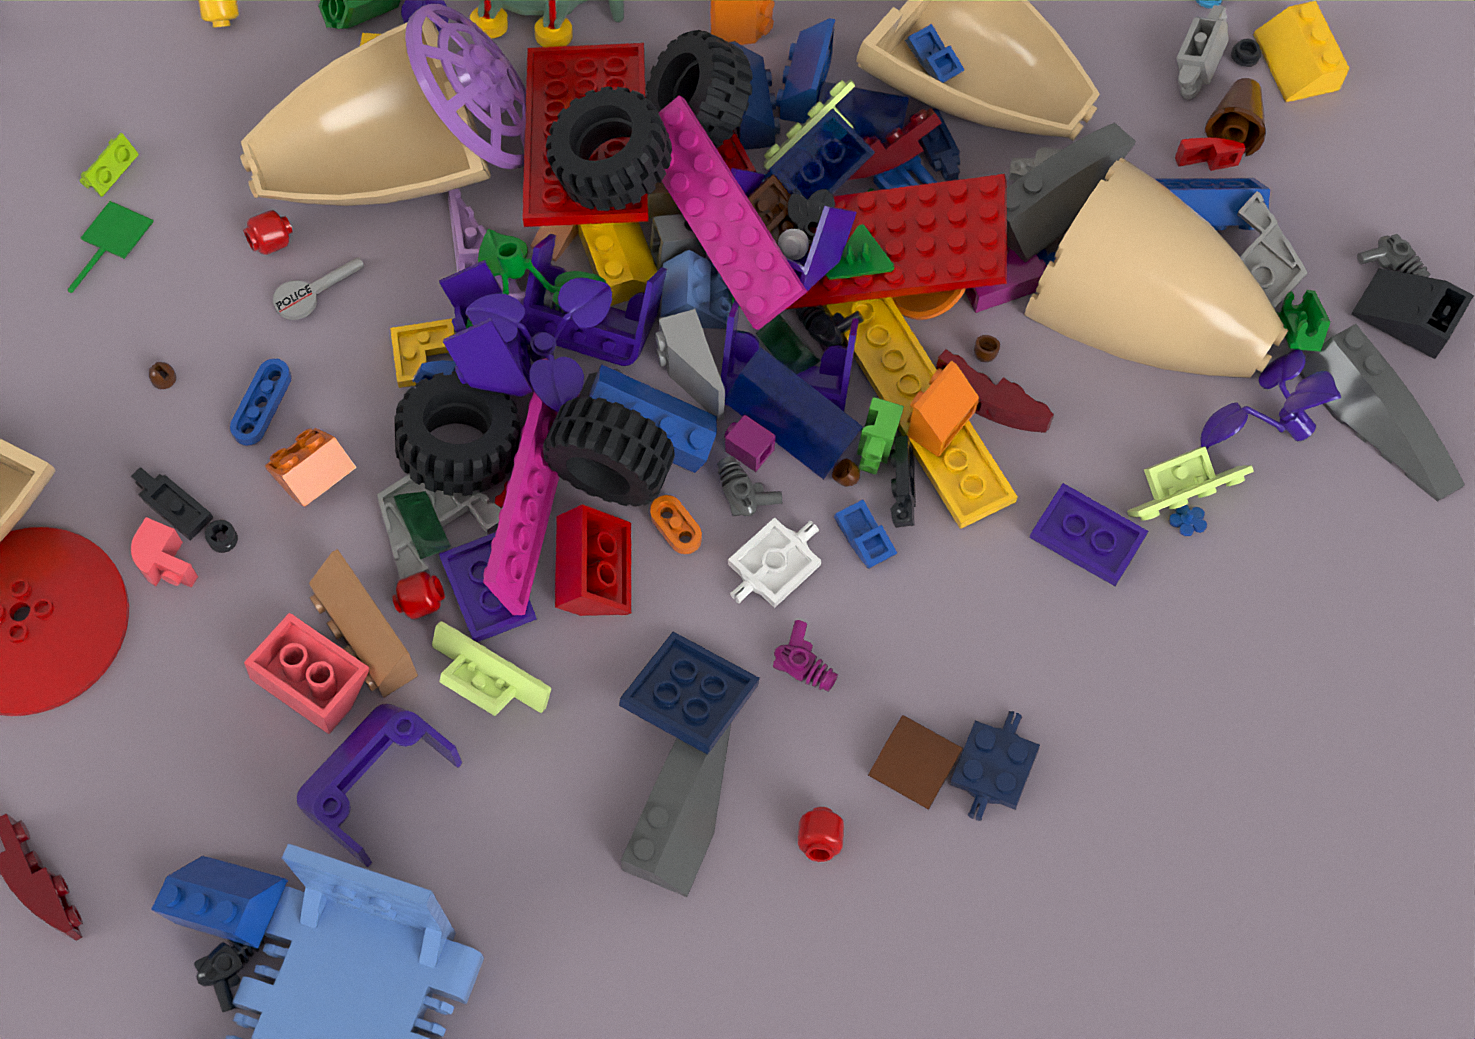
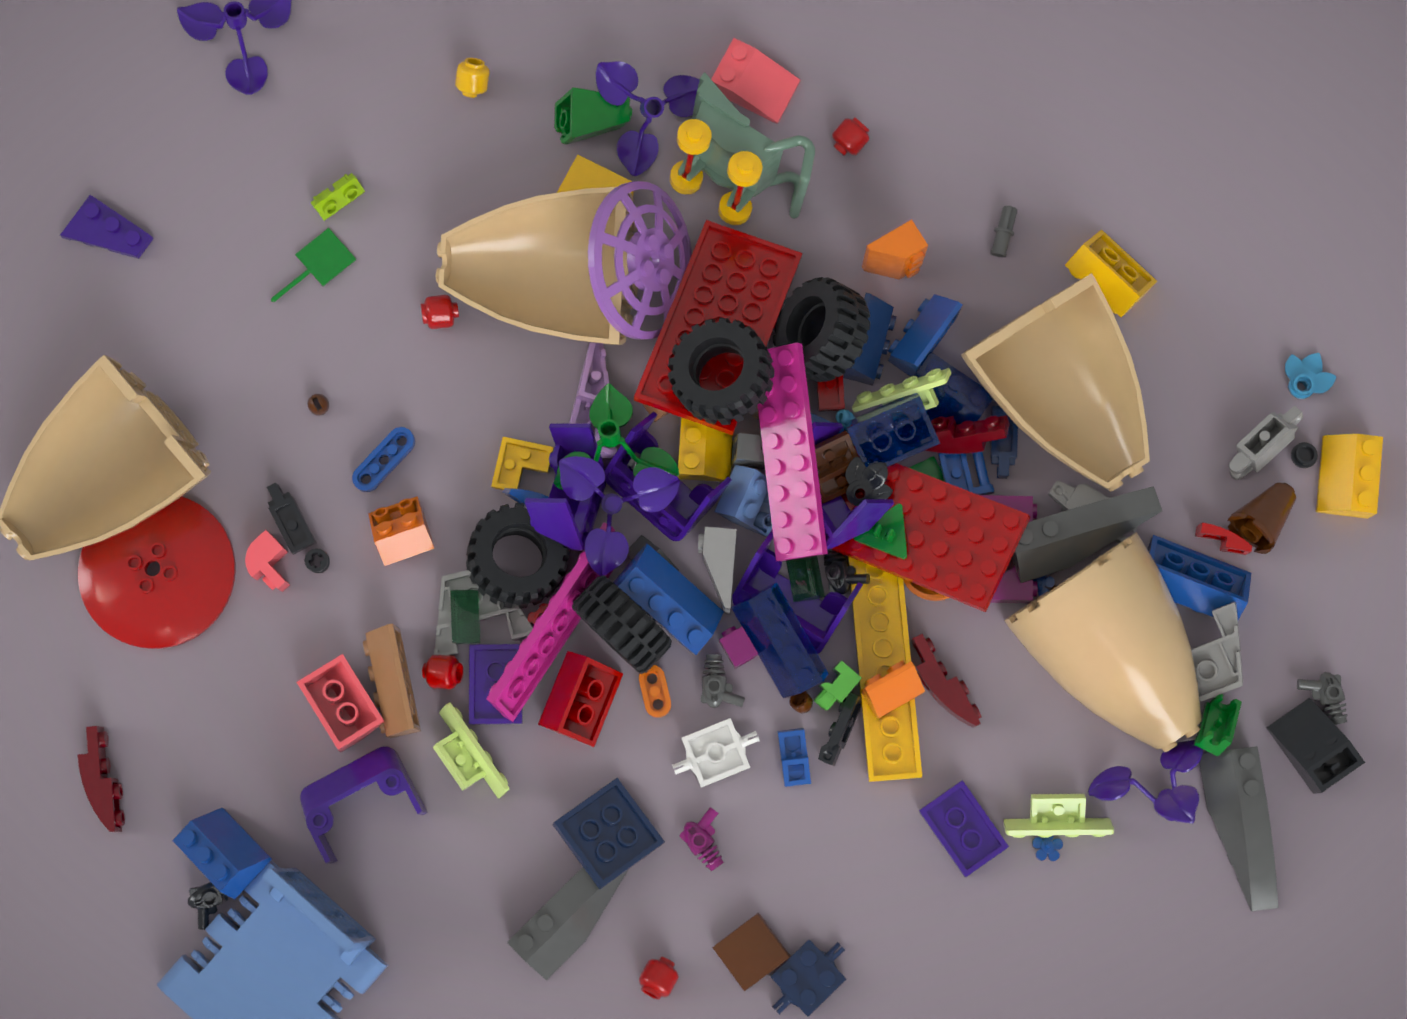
camera: 25 degrees right, 15 degrees up
(298, 299) = (442, 378): light grey piece -> none
(793, 243) = (839, 500): white plate -> none
(933, 56) = (1038, 357): blue slope -> none
(986, 348) = (960, 637): reddish brown hinge -> none

